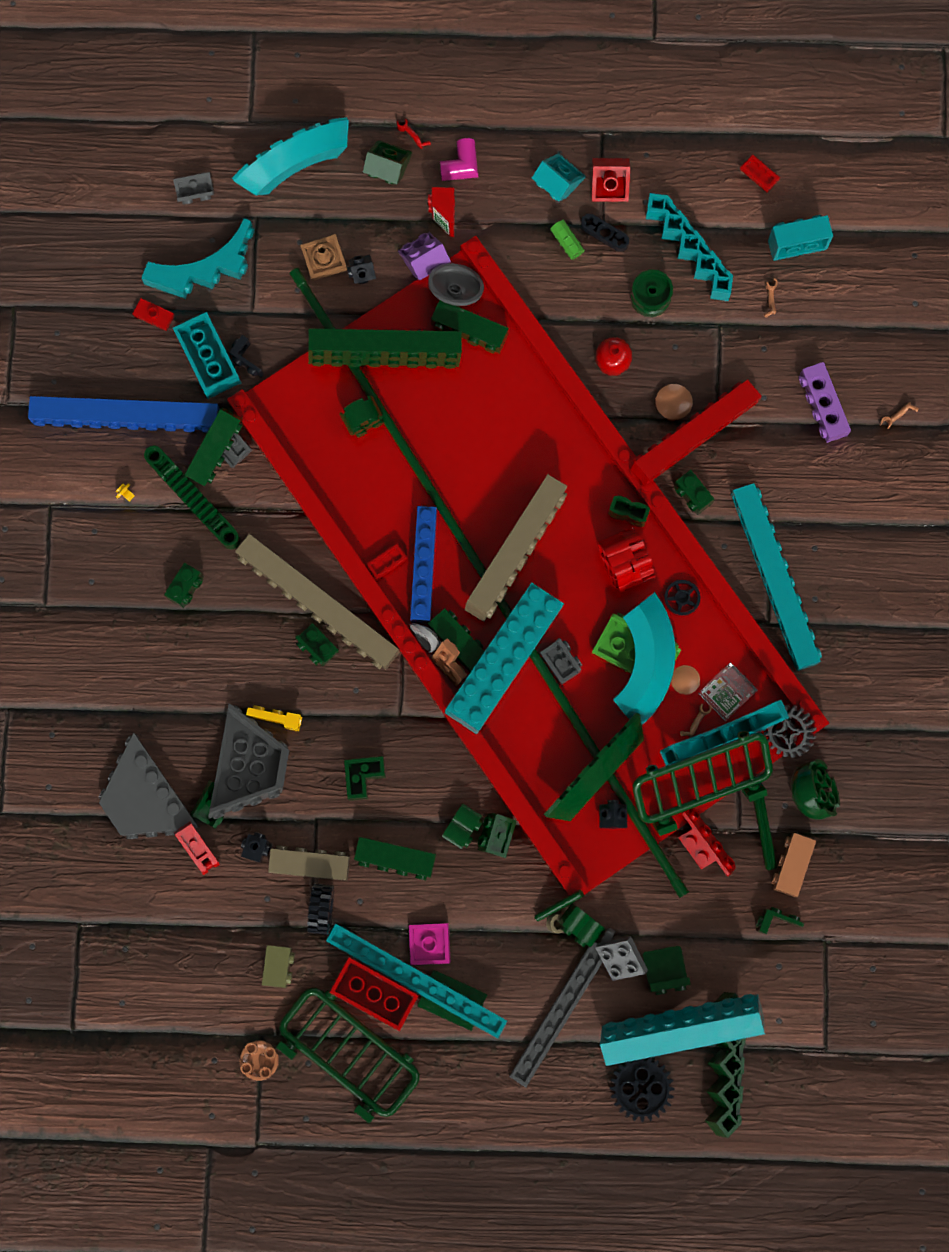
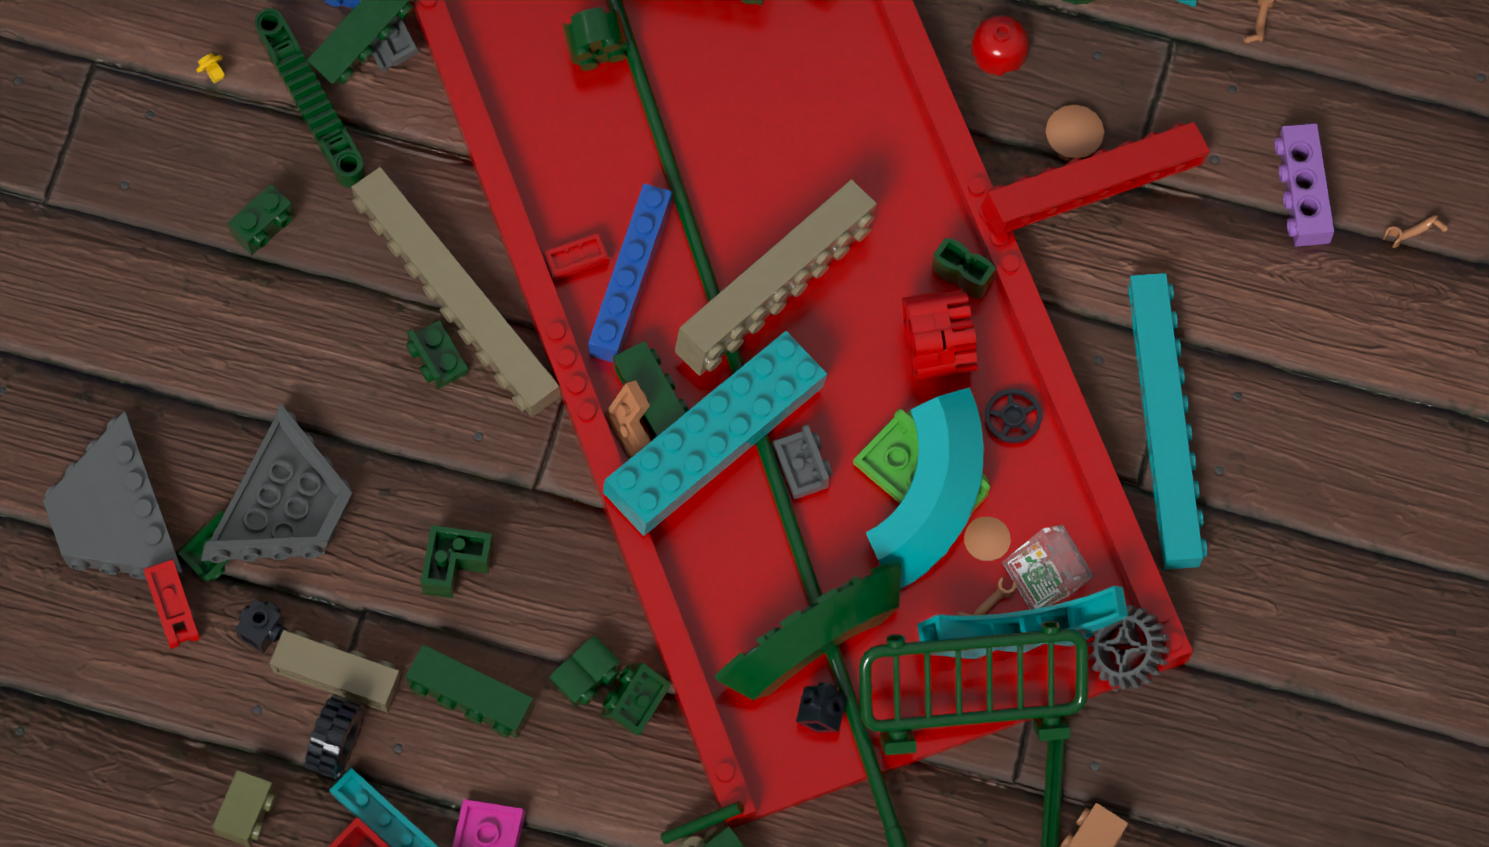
camera: 10 degrees right, 10 degrees down
(290, 720) = (366, 453): yellow plate -> none
(426, 637) = (604, 376): light grey hat -> none
(693, 492) = (1070, 267): dark green brick -> none
(703, 845) = (951, 789): red bracket -> none
(809, 793) = (1136, 744): dark green cylinder -> none

